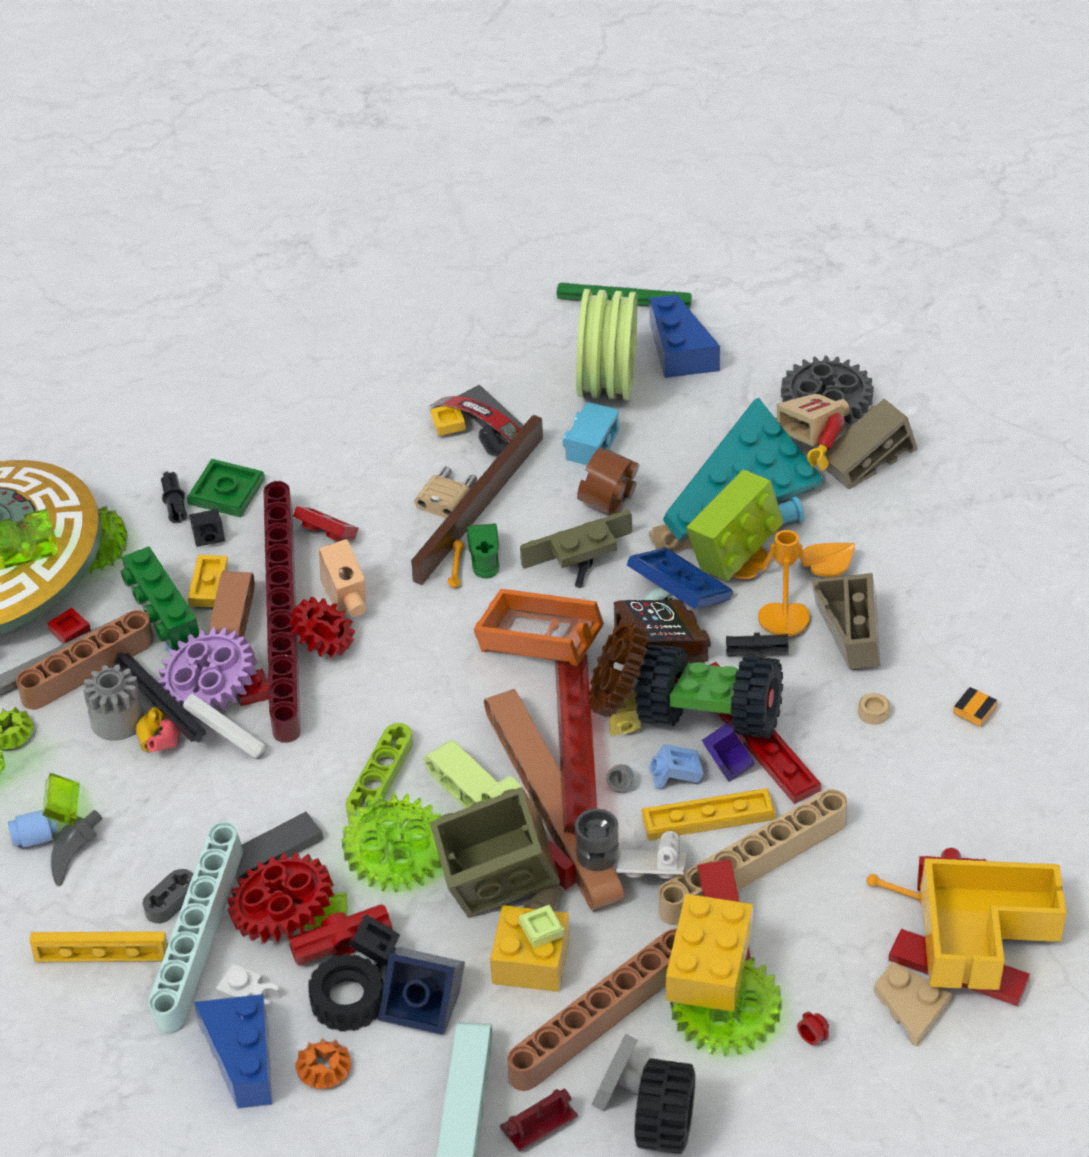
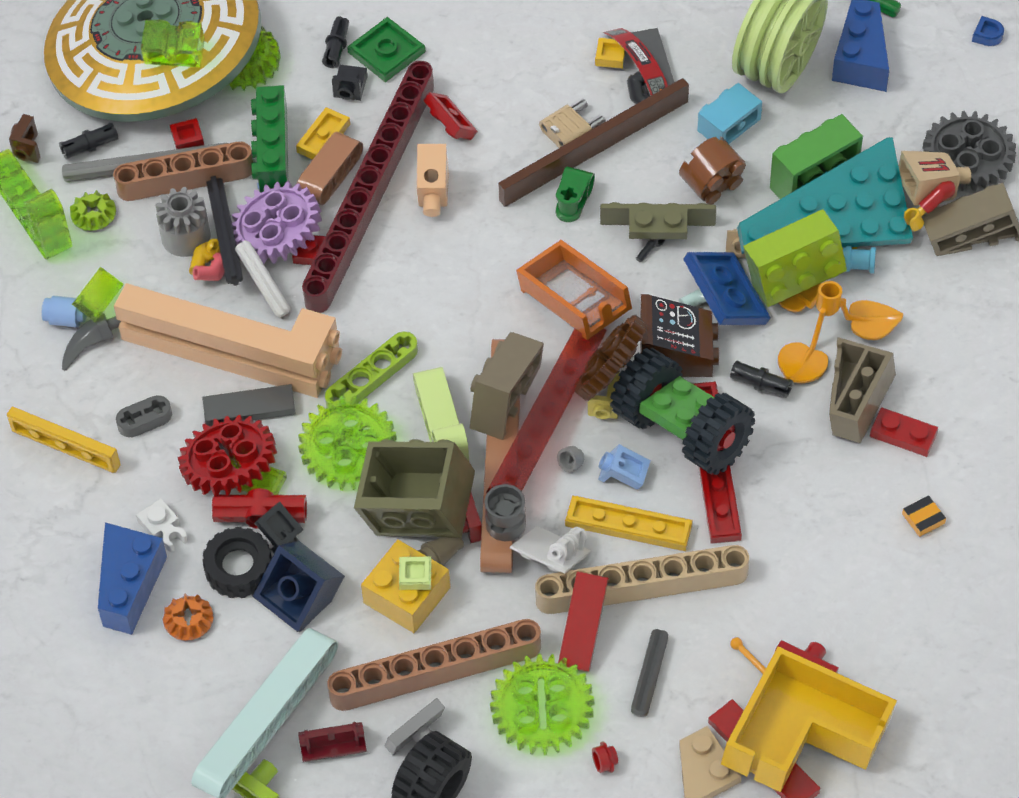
camera: 25 degrees right, 10 degrees up
(201, 906) = (141, 465): light aqua beam -> none
(223, 790) = (231, 341): none -> light nougat brick
(322, 627) = (391, 217): red gear -> none
(454, 580) = (532, 214): light orange hinge -> none
(526, 728) = (502, 382): none -> dark tan wedge
(695, 438) = (813, 155): none -> bright green brick
(709, 952) = (541, 655): yellow brick -> none
(728, 752) = (673, 473): dark purple panel -> none
(781, 292) = (988, 32): none -> blue tile
(808, 936) = (649, 672): none -> dark grey axle
(873, 708) = (831, 481): tan tile -> none
(912, 643) = (904, 432): none -> red plate

